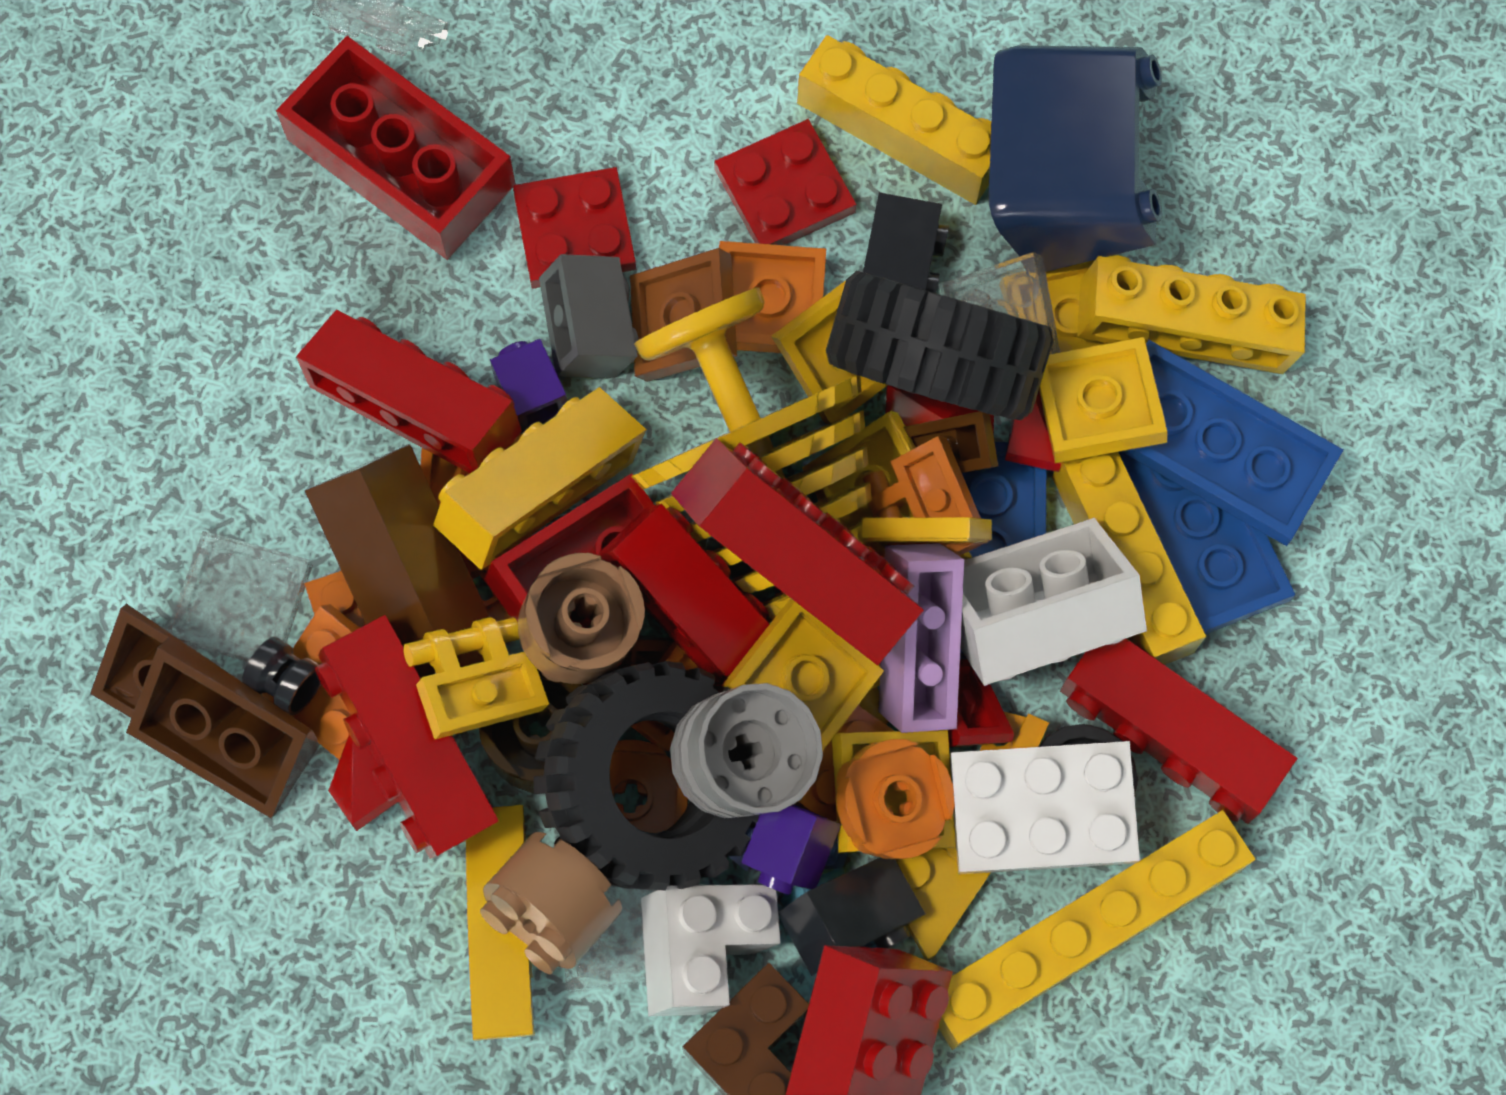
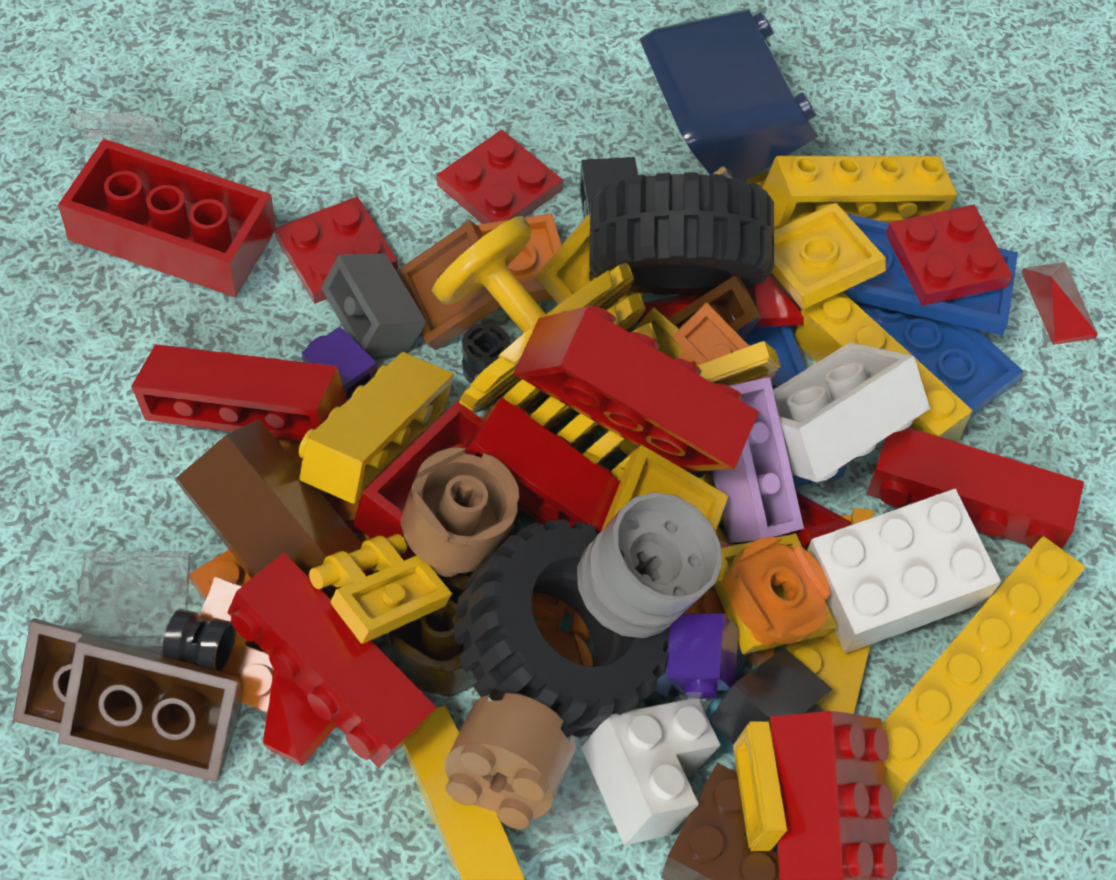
camera: 20 degrees left, 15 degrees down
(692, 422) = (481, 348): none -> black wheel
(792, 1010) = (759, 787): none -> yellow tile
(897, 117) = (576, 111): yellow brick -> none
(1256, 434) = (948, 255): none -> red plate
(1382, 513) = (1059, 303): none -> red slope

